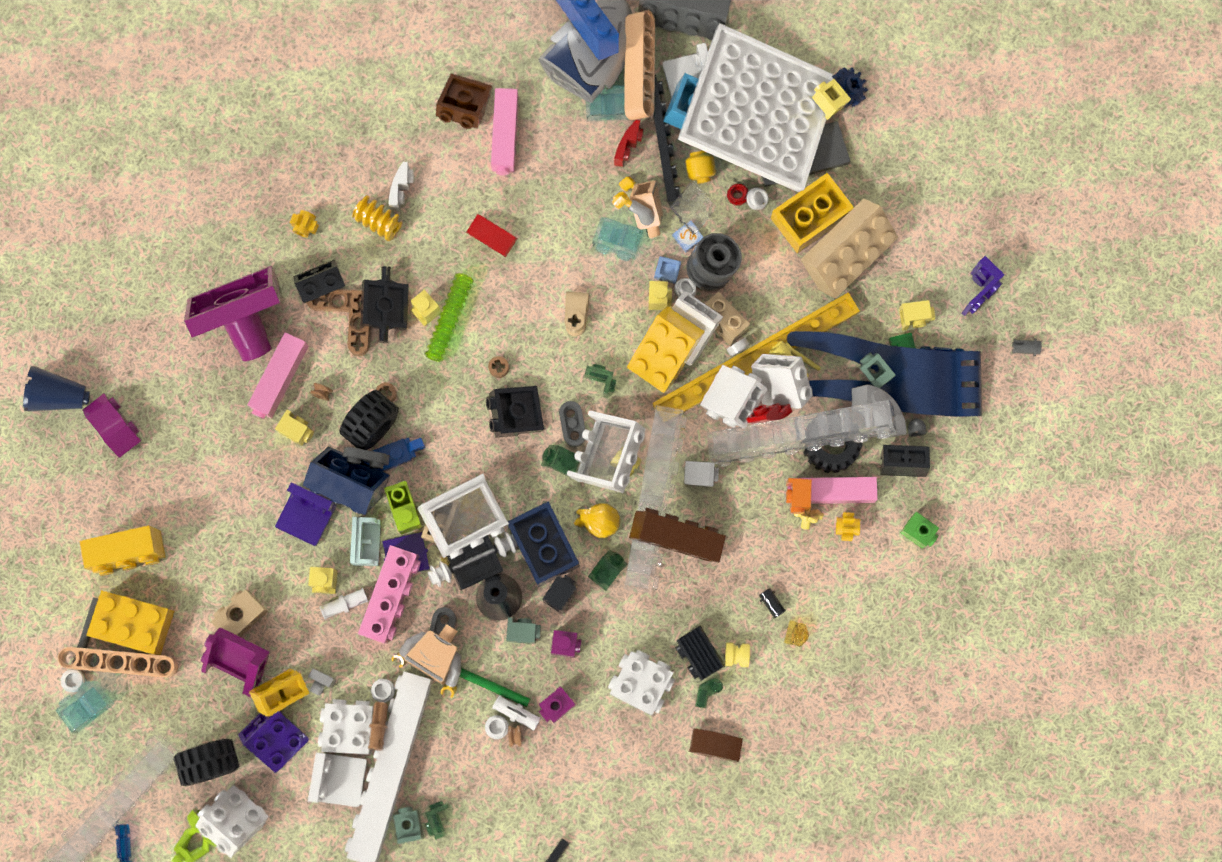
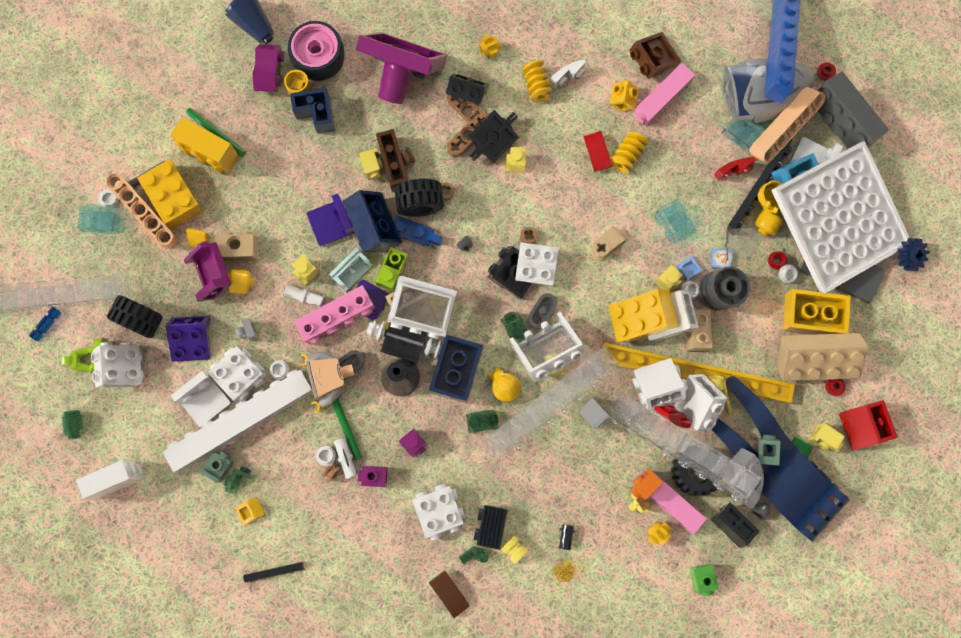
camera: 40 degrees right, 0 degrees up
(113, 528) = (209, 127): none -> green bar
(130, 359) = (313, 38): none -> wheel
(157, 416) = (297, 81): none -> yellow wheel
(191, 419) = (316, 105): none -> dark blue brick
(194, 640) = (196, 236): none -> yellow slope
(273, 641) = (240, 281): none -> yellow head
(277, 376) = (397, 119): bright pink brick -> none
(279, 692) = (215, 314): yellow brick -> none
(311, 407) = (392, 158): none -> reddish brown brick
(356, 456) = (391, 212): dark grey plate -> none
(378, 726) = (254, 389): medium nougat axle -> none
(447, 425) = (465, 243): none -> dark grey hinge
(449, 317) = (526, 178): clear neon green piece -> none
(470, 163) = (624, 95): none -> yellow brick
(473, 838) = (249, 511): none -> yellow slope
(518, 211) = (628, 150): none -> yellow piece
(522, 631) = (394, 411): sand green brick -> none
(529, 386) = (536, 264): none -> white bracket
(560, 593) = (438, 409): black brick -> none
(599, 374) = (587, 295): clear green bracket -> none
(644, 204) = (712, 212): torso -> none
(677, 536) = (544, 440): reddish brown brick -> none
(680, 148) = (767, 198): none -> yellow piece
(738, 346) = (691, 356): white tile -> none
(830, 97) = (895, 250): light yellow brick -> none
(884, 269) = (831, 390): none -> red plate
(940, 272) = (868, 425): none -> red slope
(985, 275) = (899, 457): dark purple bracket -> none
(1026, 346) = (883, 524): dark grey pin -> none

